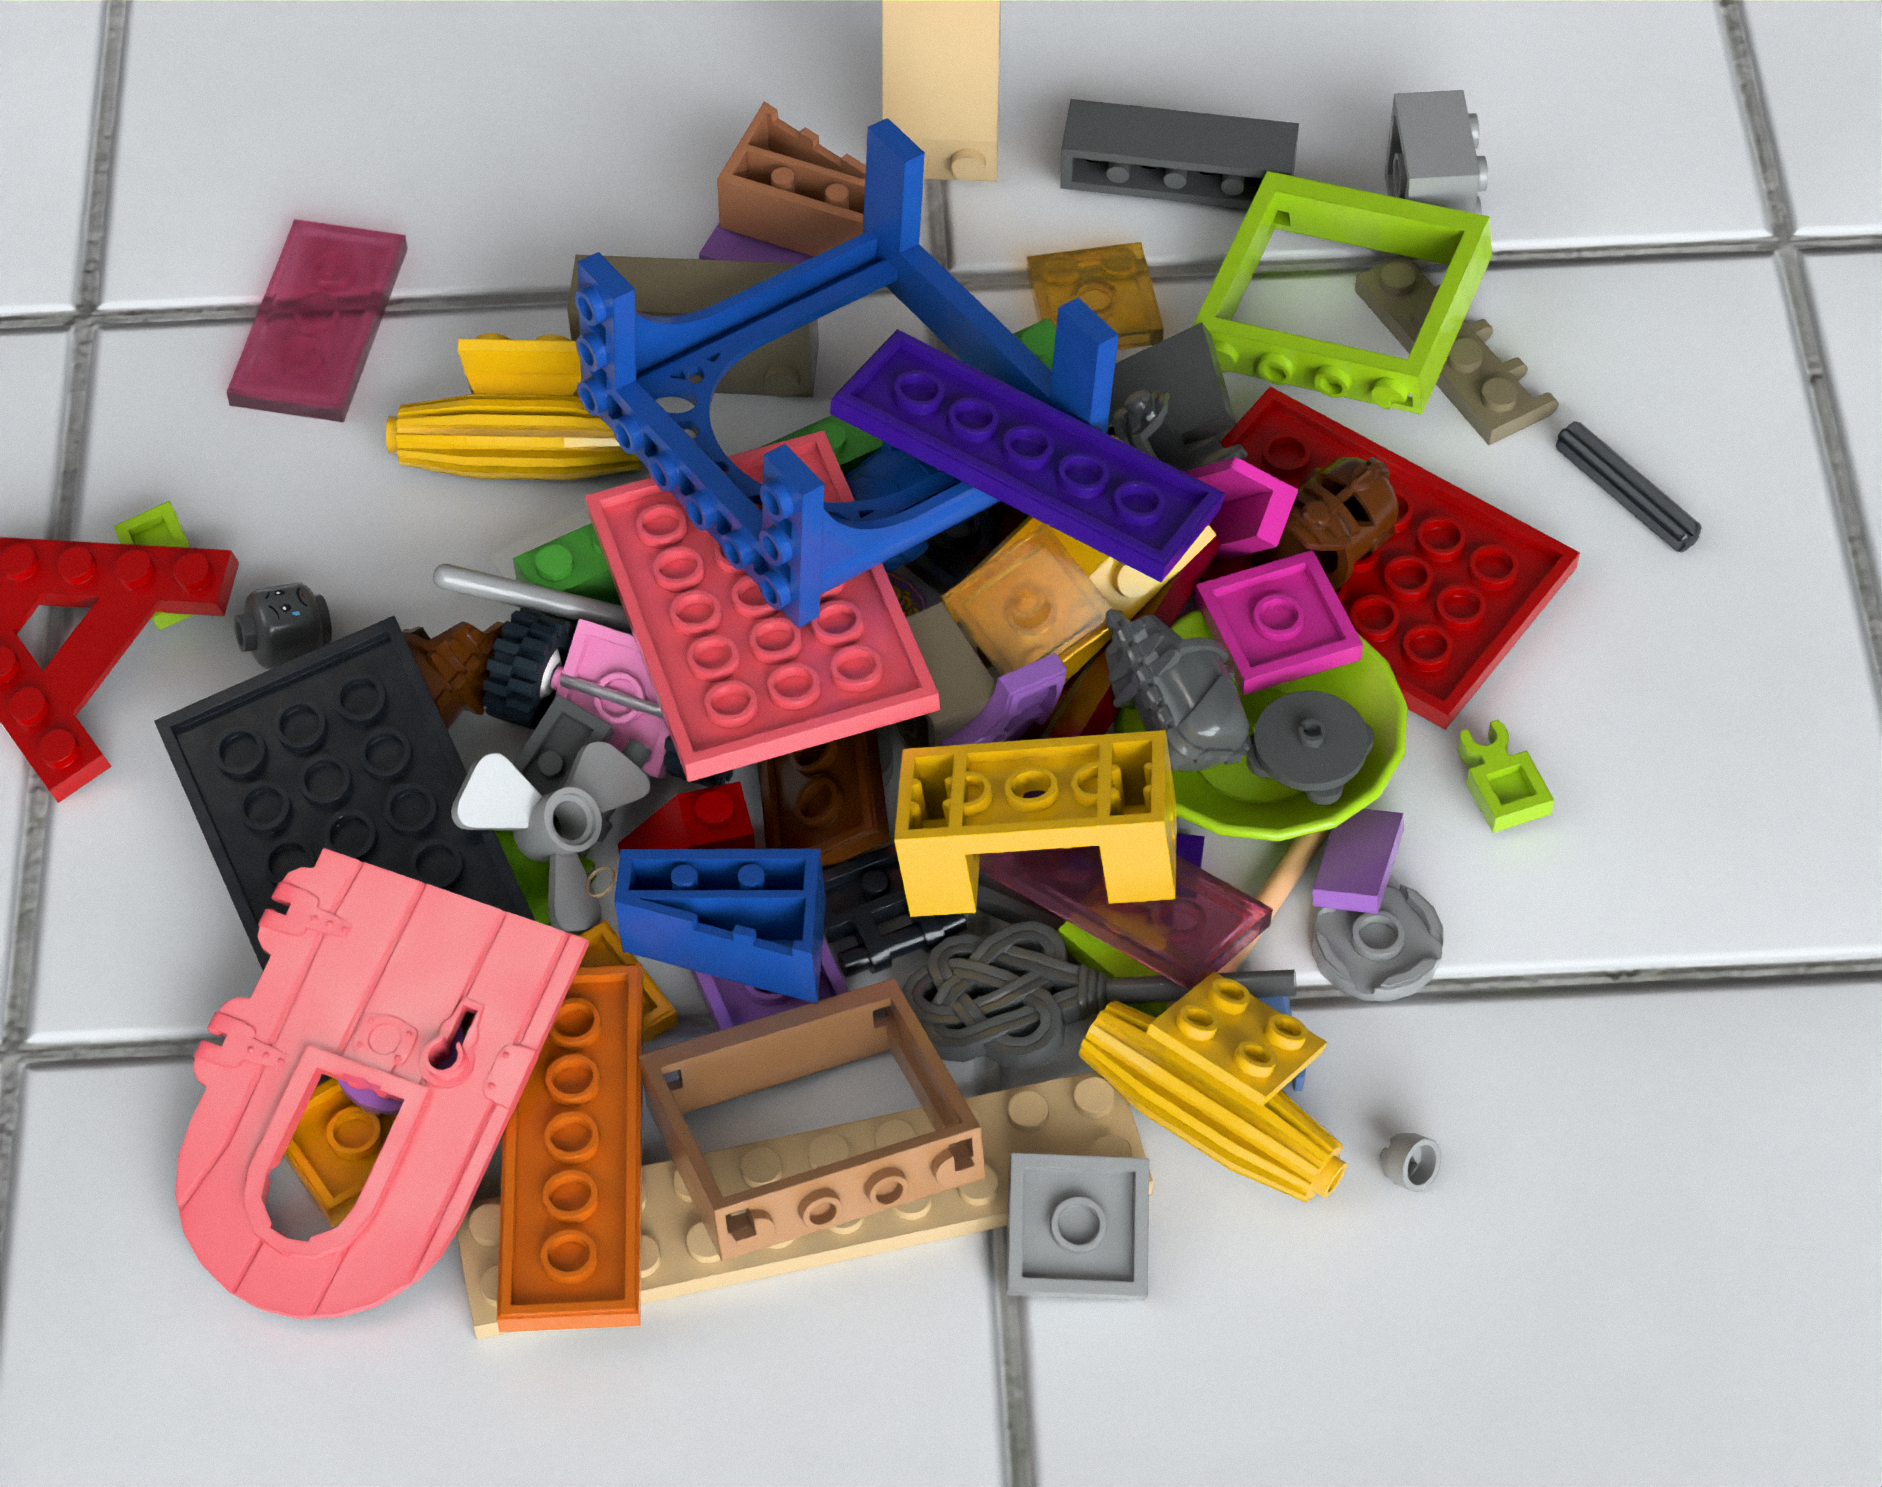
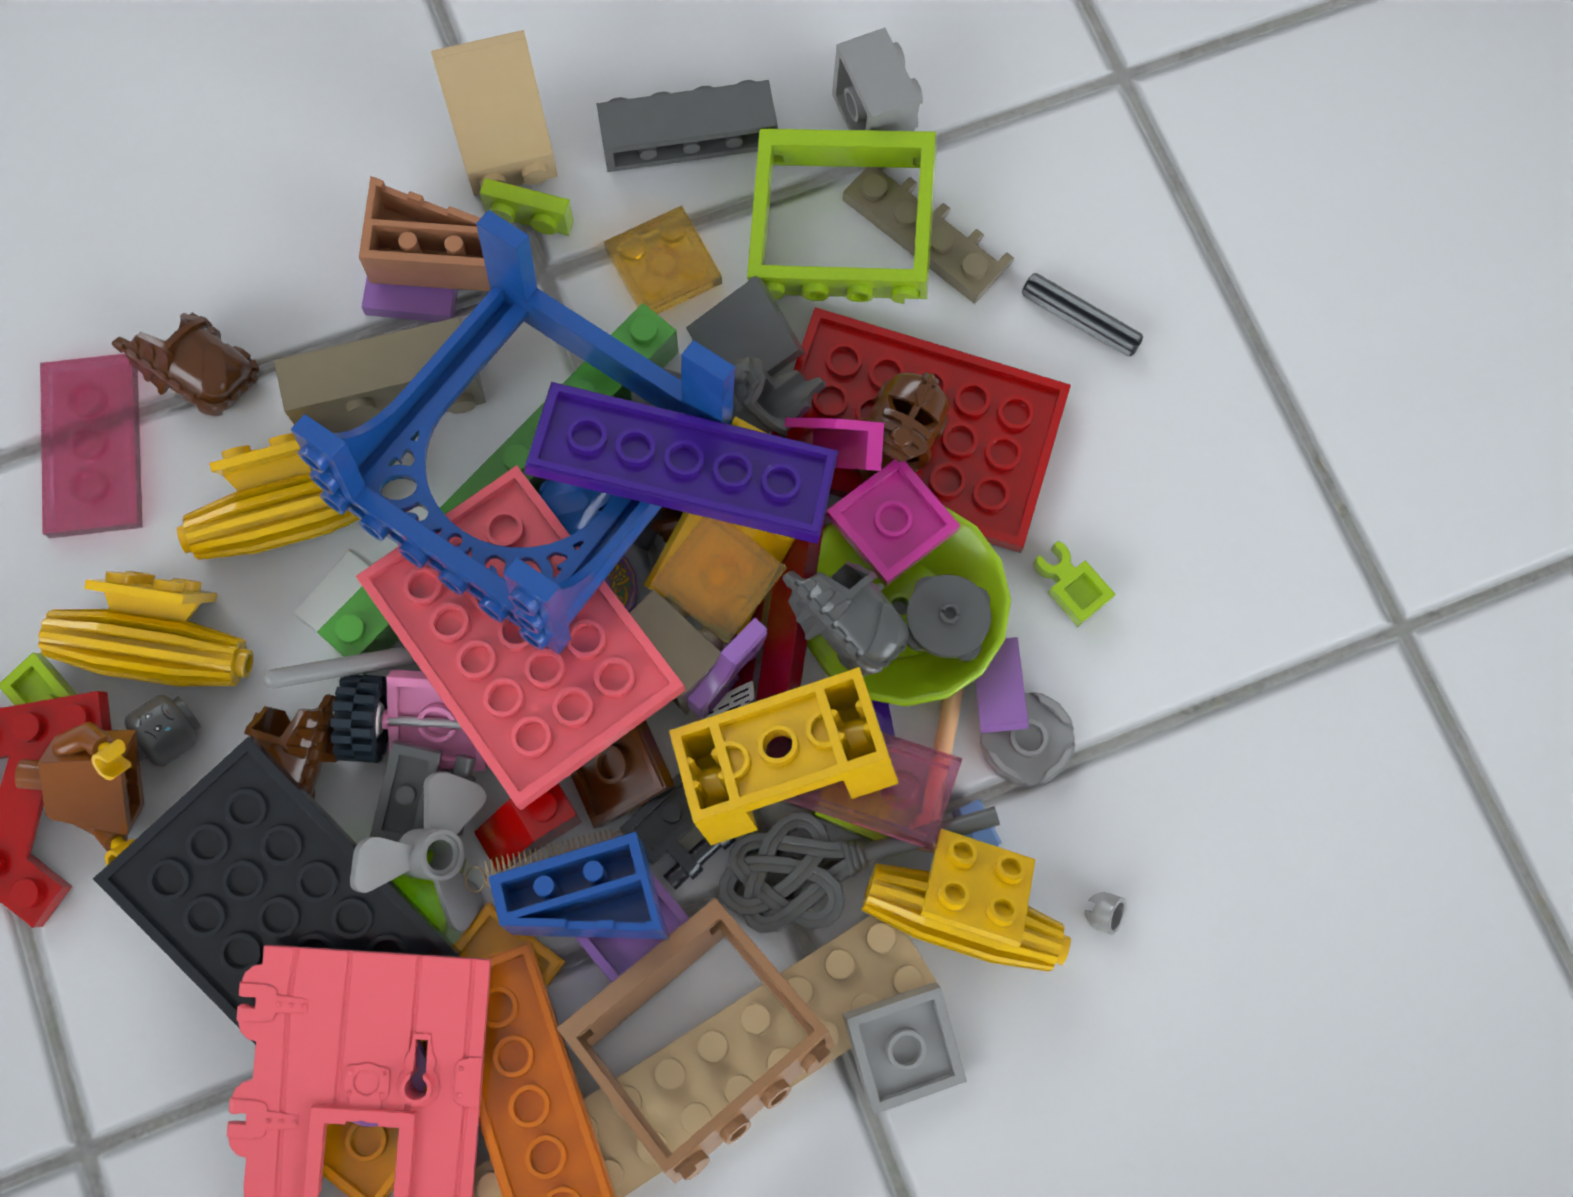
camera: 25 degrees left, 20 degrees up
(183, 634) = (90, 782): none -> dark orange torso
(310, 515) = (146, 634): none -> yellow plate
(474, 255) = (193, 364): none -> reddish brown helmet
(959, 204) = (528, 207): none -> lime plate

